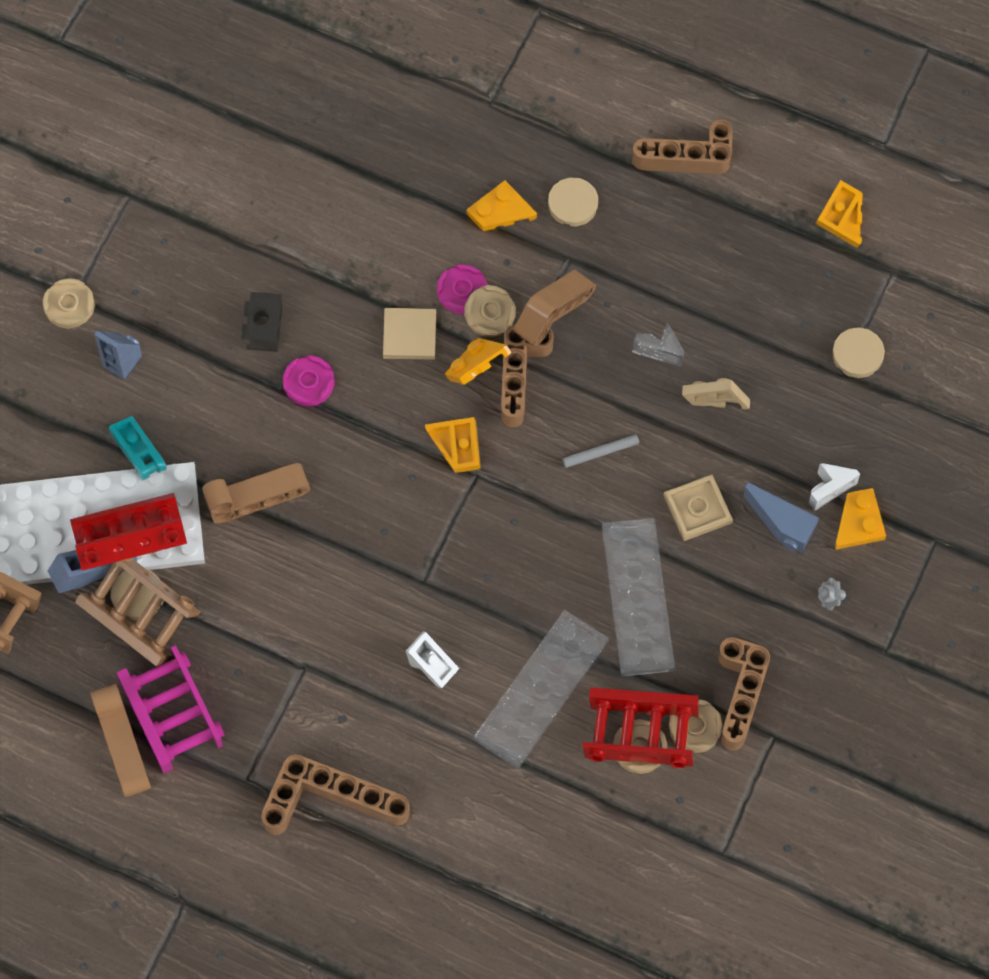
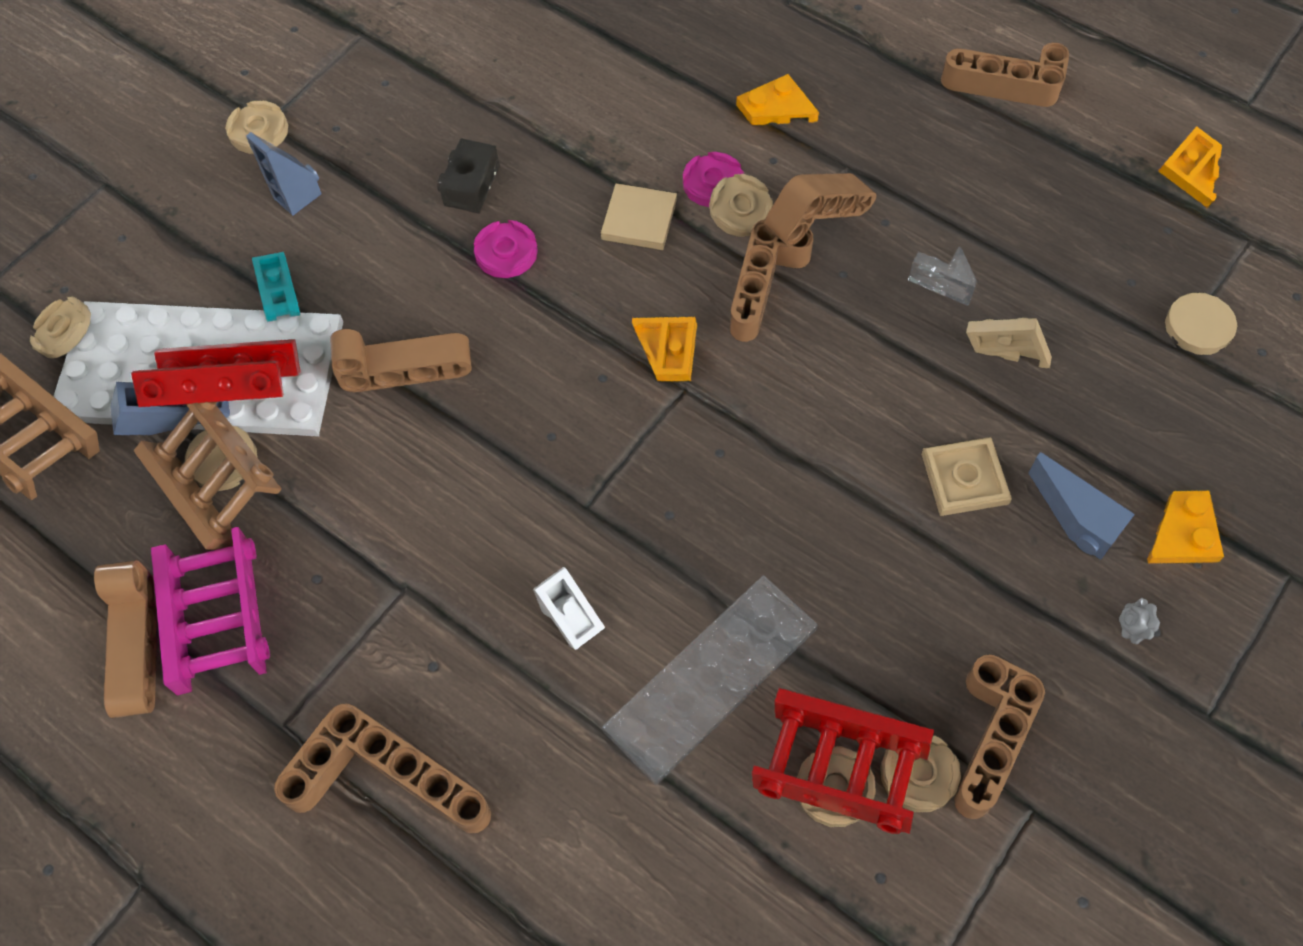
camera: 15 degrees right, 5 degrees down
(475, 360) = (710, 254): light orange wing -> none
(573, 201) = (864, 108): tan tile -> none
(600, 451) = (848, 385): light grey bar -> none
(637, 597) = (867, 581): clear plate -> none
(836, 481) = (1156, 473): white slope -> none

